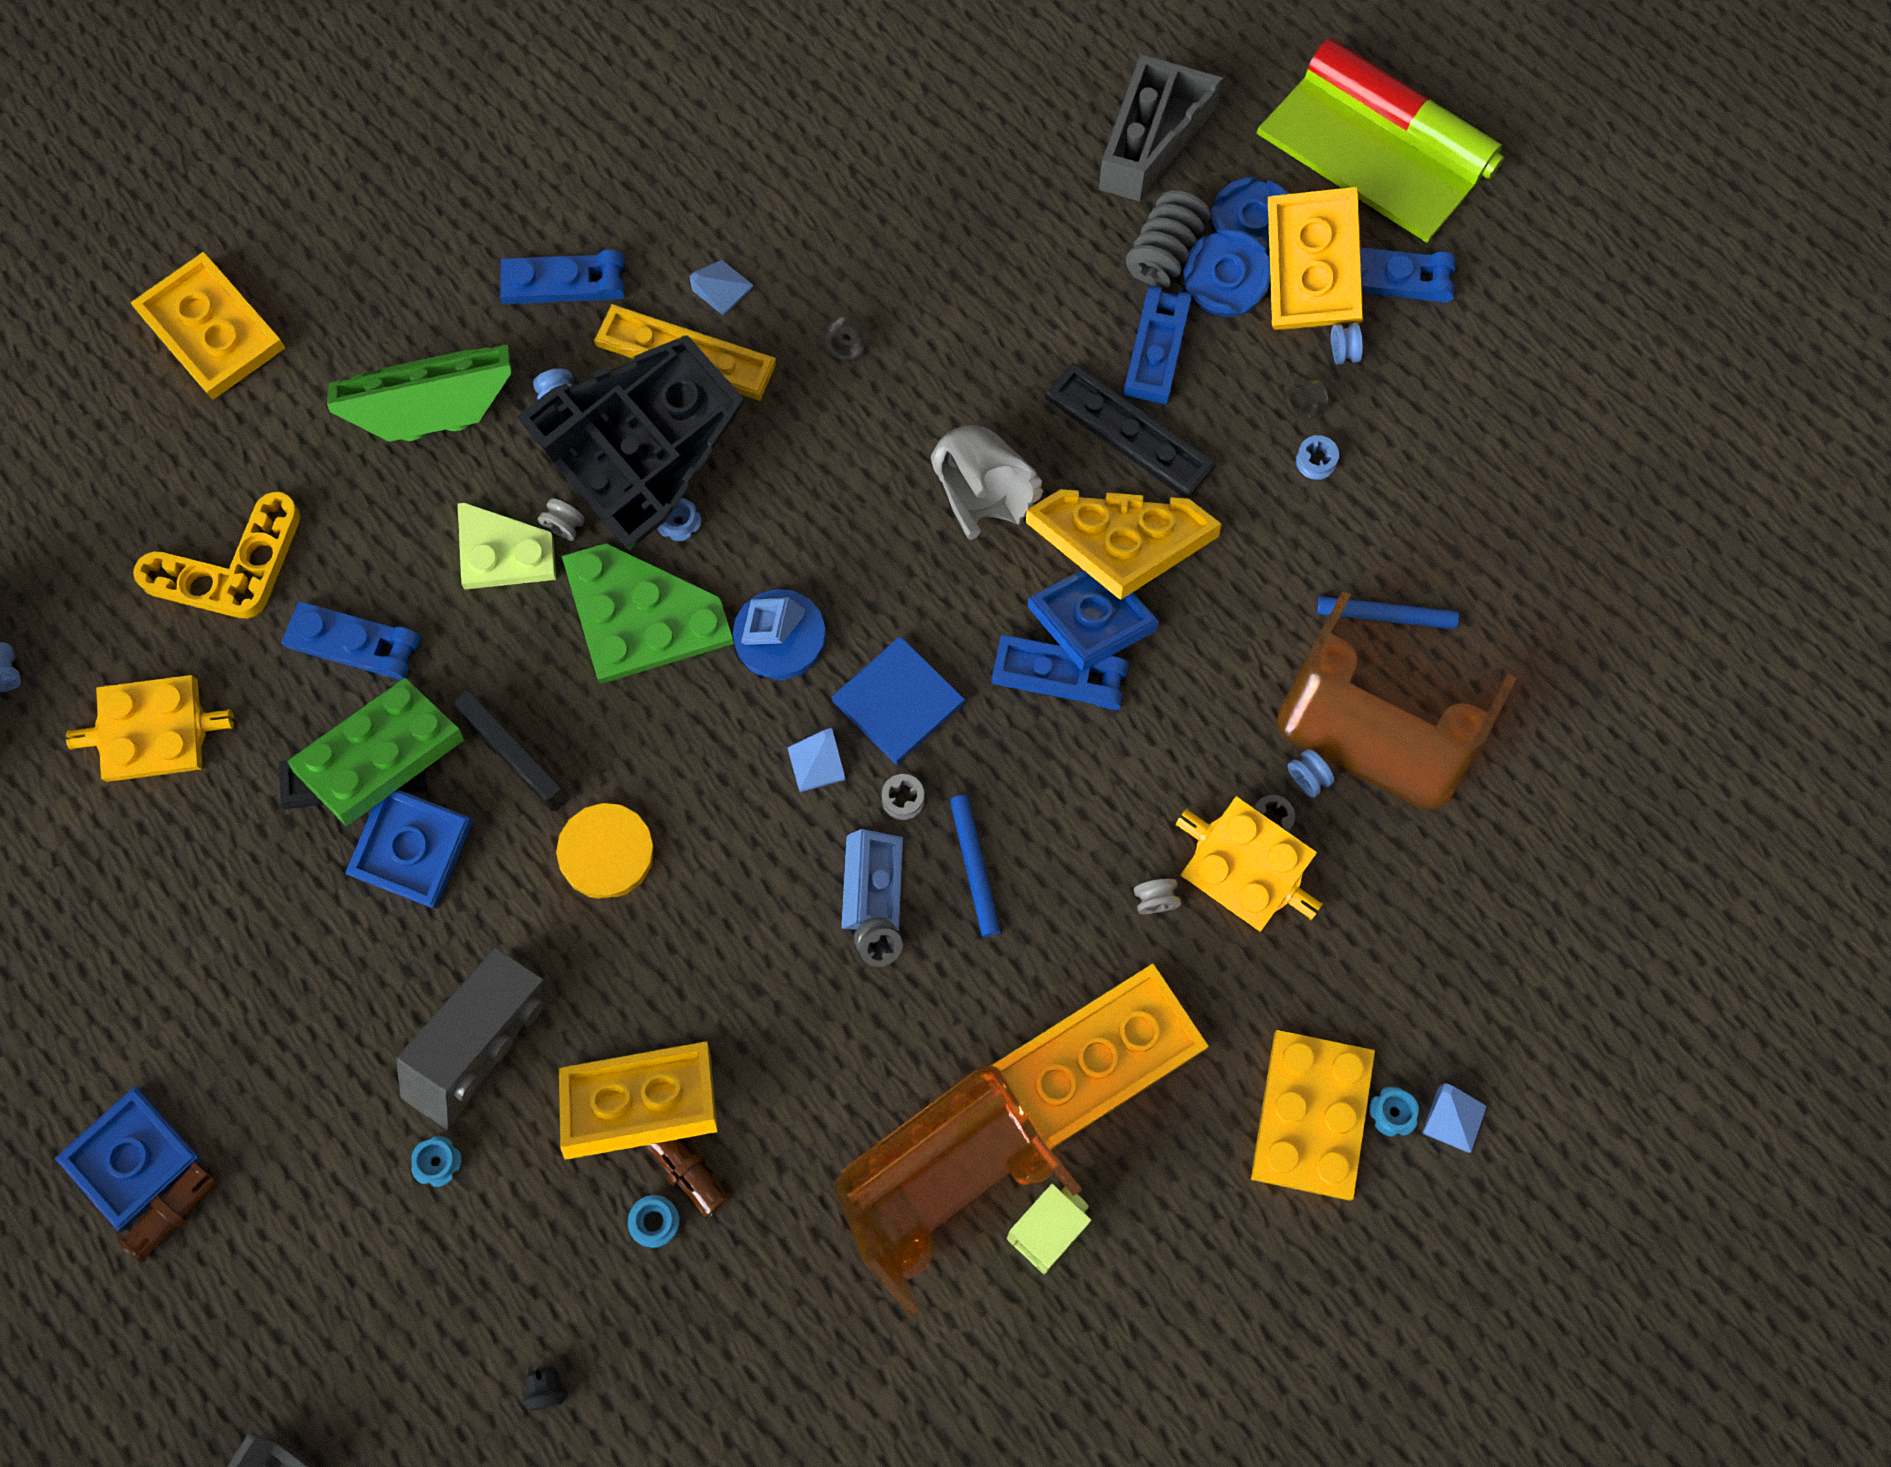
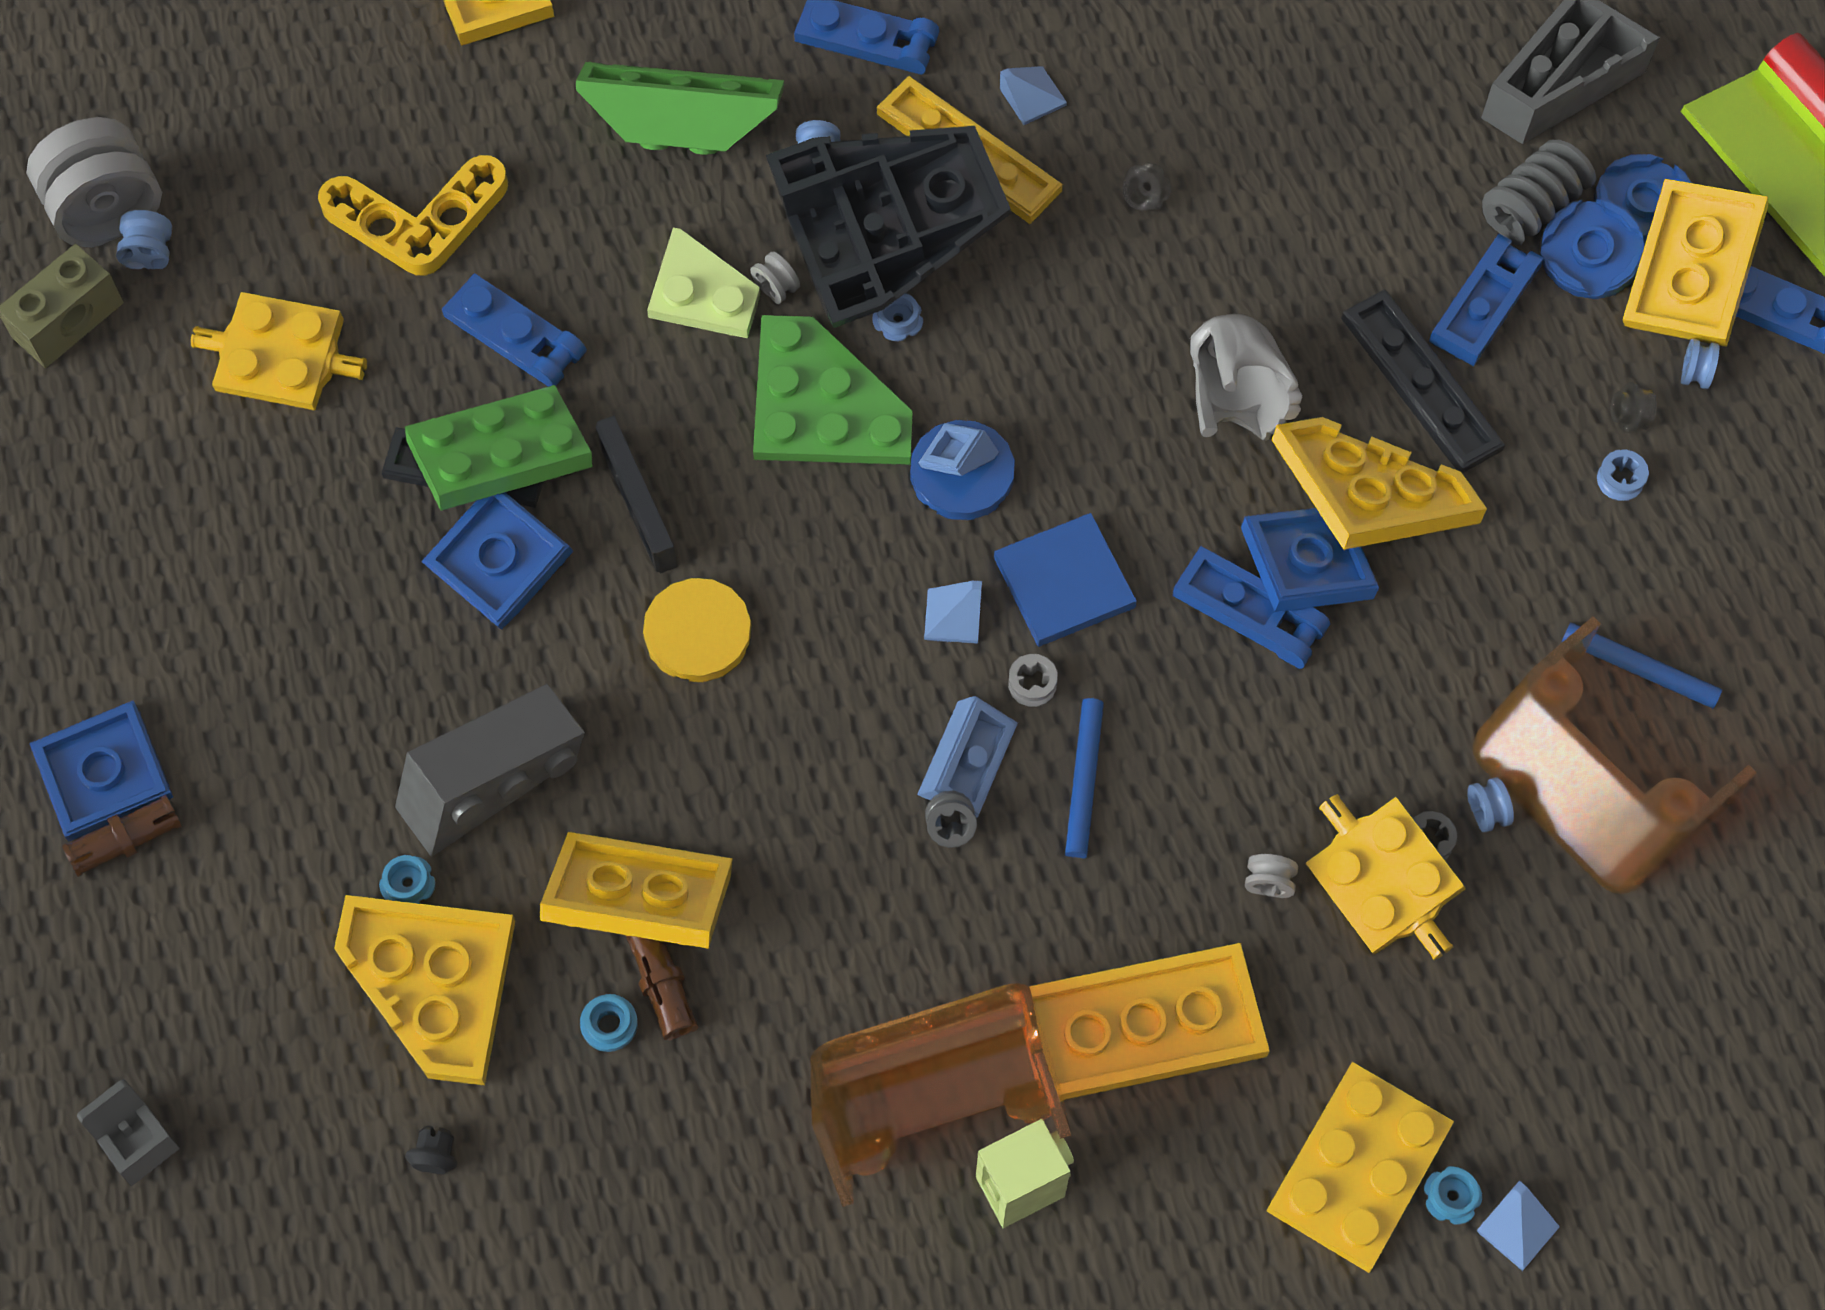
camera: 20 degrees right, 5 degrees down
(486, 1239) = (431, 978): none -> yellow plate

